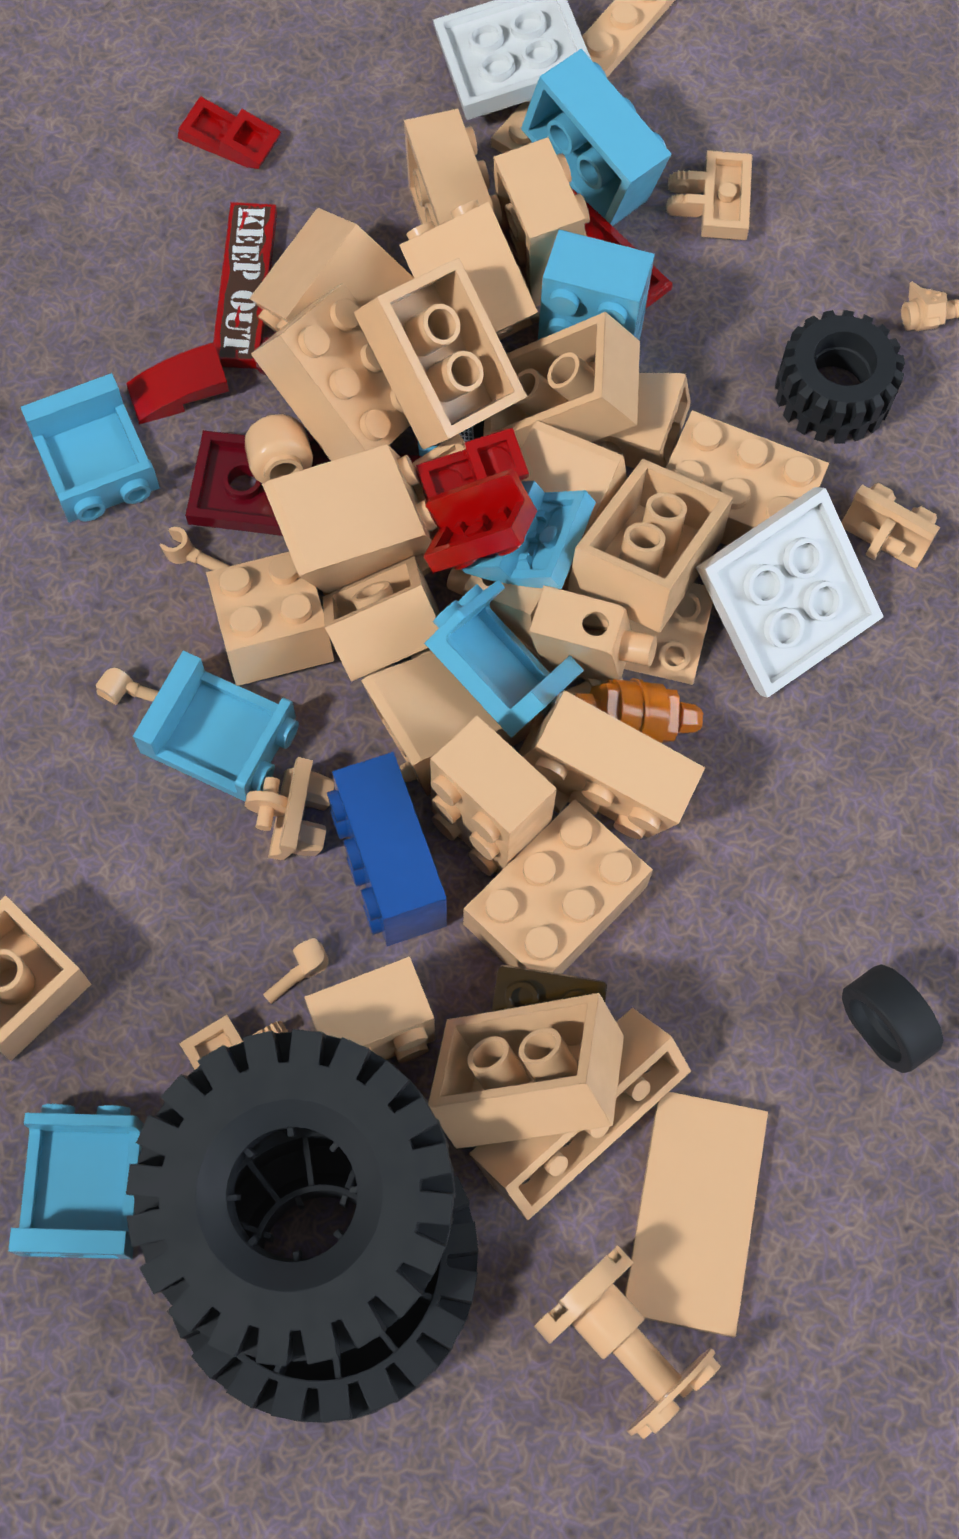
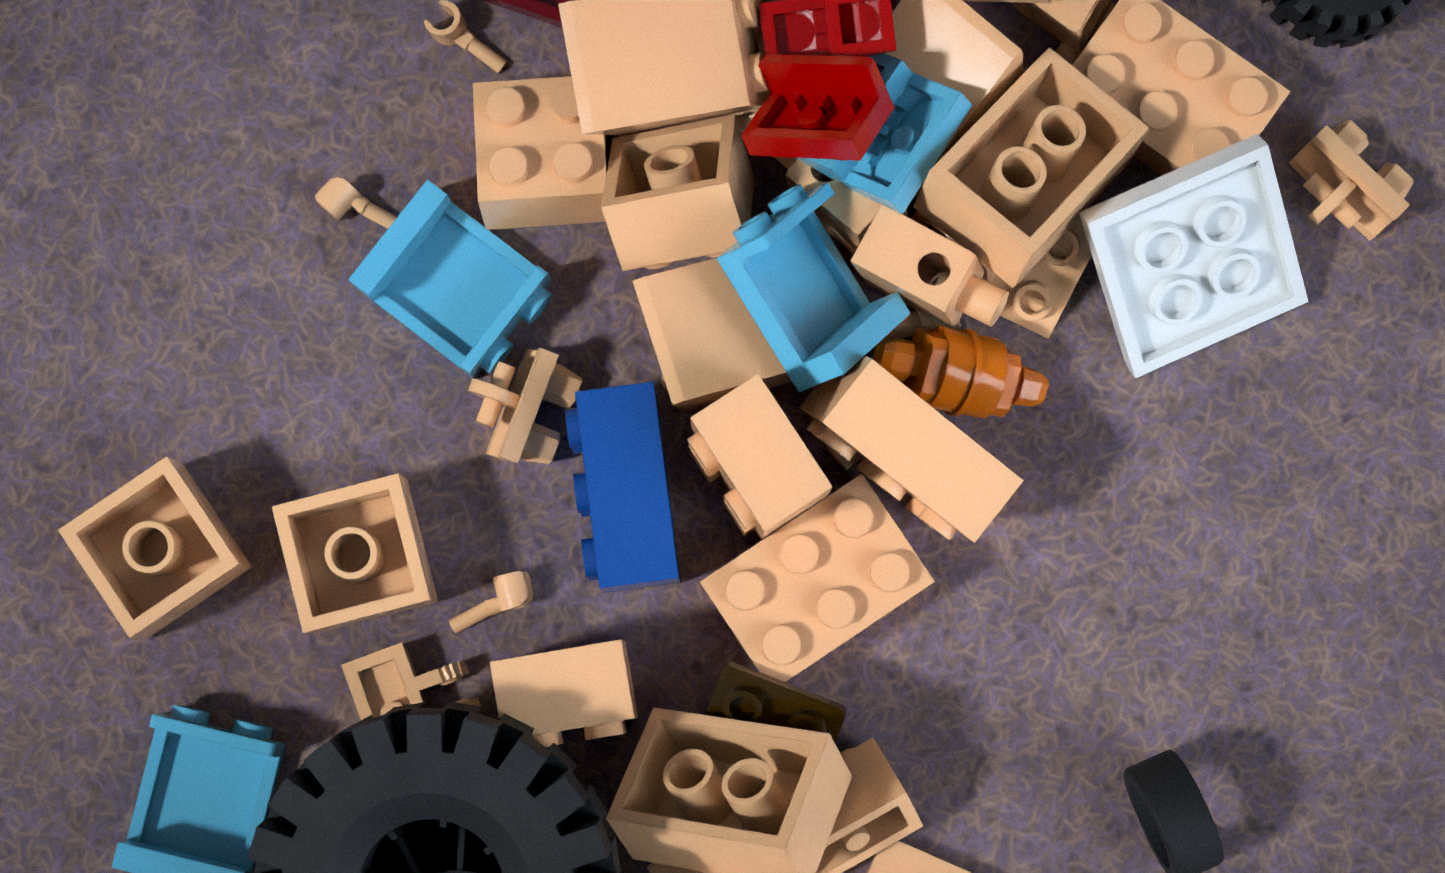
camera: 15 degrees right, 15 degrees up
(175, 949) = (354, 554): none -> light nougat brick

